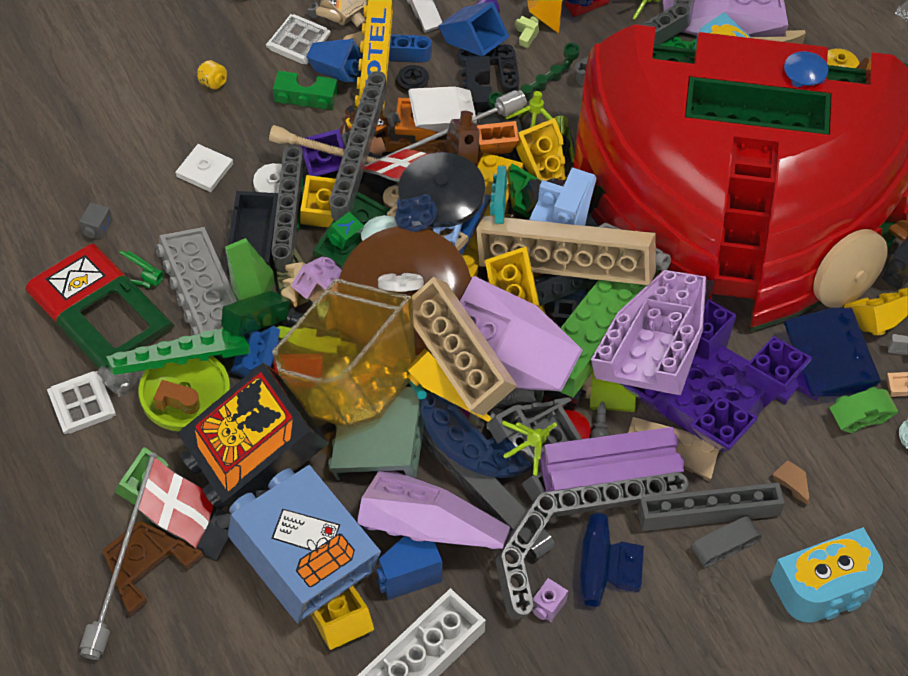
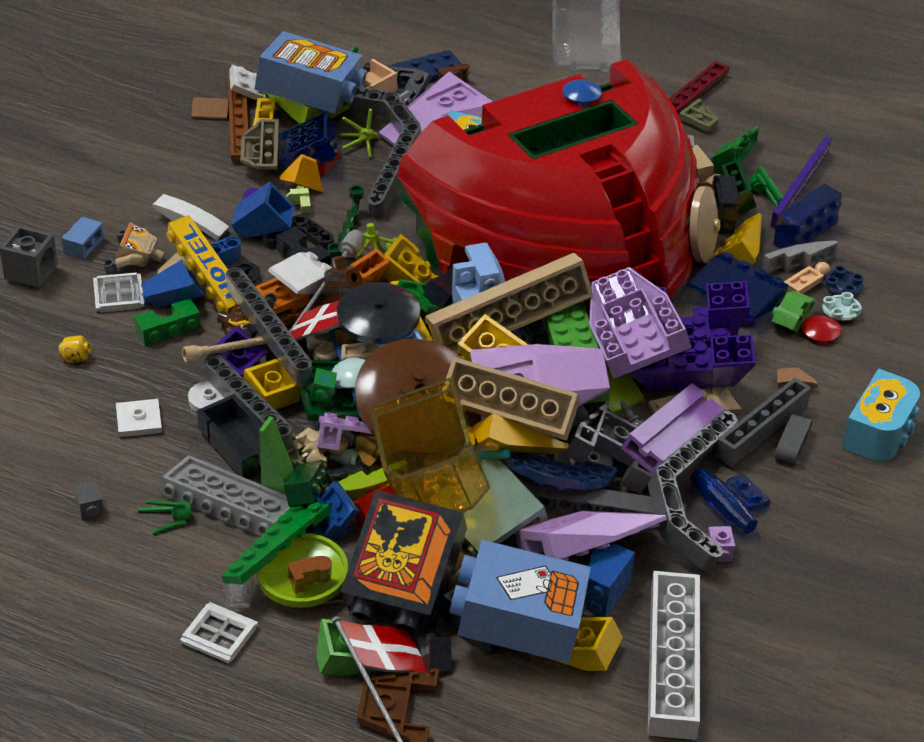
camera: 40 degrees left, 15 degrees down
(79, 283) = (125, 556): piece -> none
(402, 283) = (426, 378): white plate -> none
(415, 212) = (381, 332): dark blue dish -> none
(498, 194) = (427, 297): teal plate -> none
(534, 438) = (617, 435): lime plant -> none
(877, 445) = (821, 329): none -> red dish

